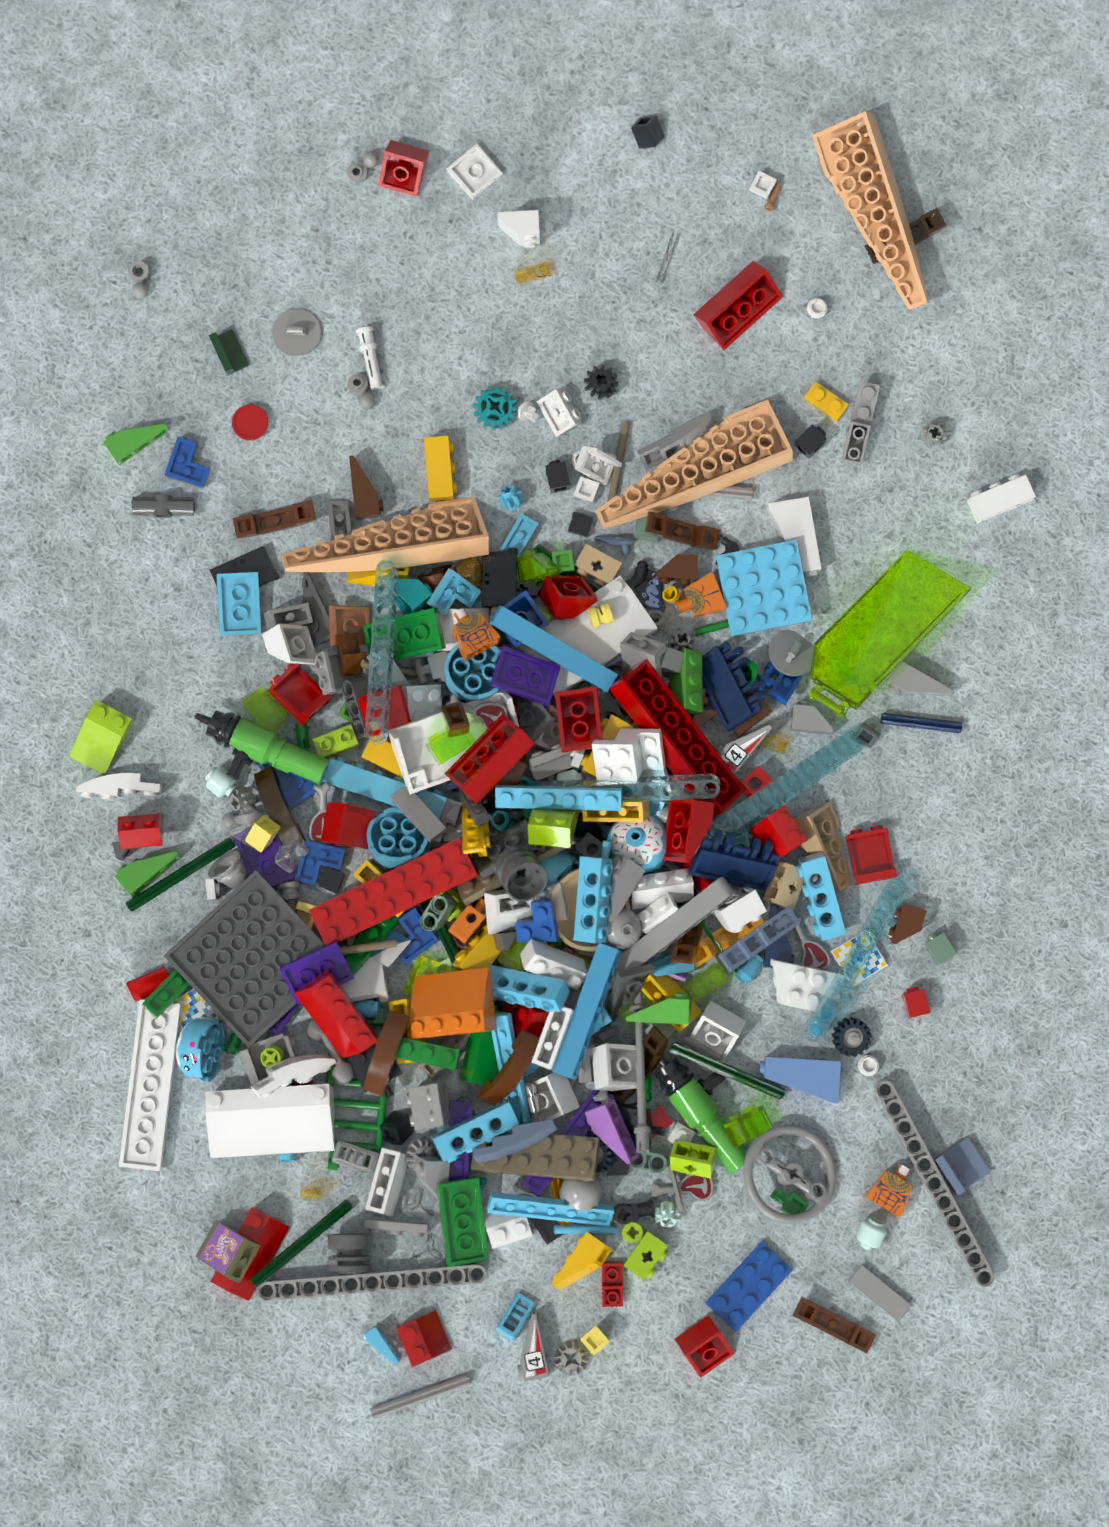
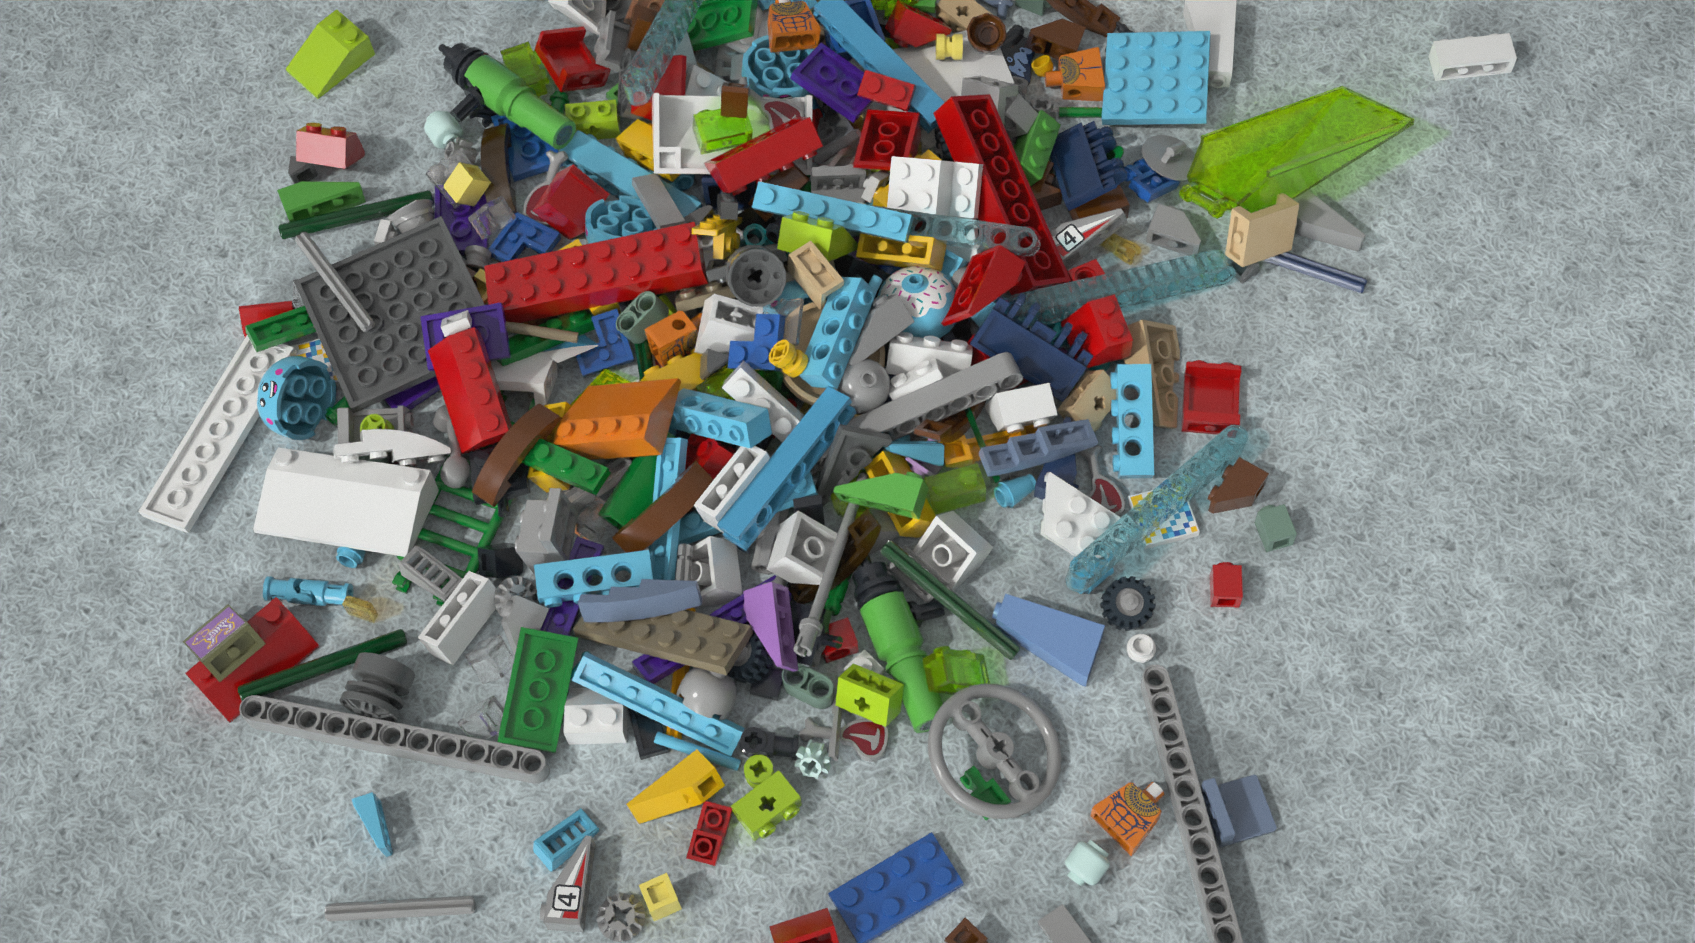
camera: 20 degrees right, 20 degrees down
(110, 786) = (321, 103): white slope -> none
(197, 950) = (335, 282): none -> light grey axle
(271, 1190) = (306, 591): none -> medium azure piece
(311, 970) = (456, 323): none -> white plate
(369, 1008) = (518, 405): medium azure cone -> none
(396, 1228) = (451, 678): light grey plate -> none
(423, 1338) = (431, 830): red slope -> none
(565, 861) = (814, 273): none -> tan panel
(565, 933) = (788, 358): none -> yellow wheel
(567, 677) = (886, 90): none -> red plate
(626, 596) = (986, 33): none -> reddish brown hair
(871, 725) = (1263, 232): none -> tan panel

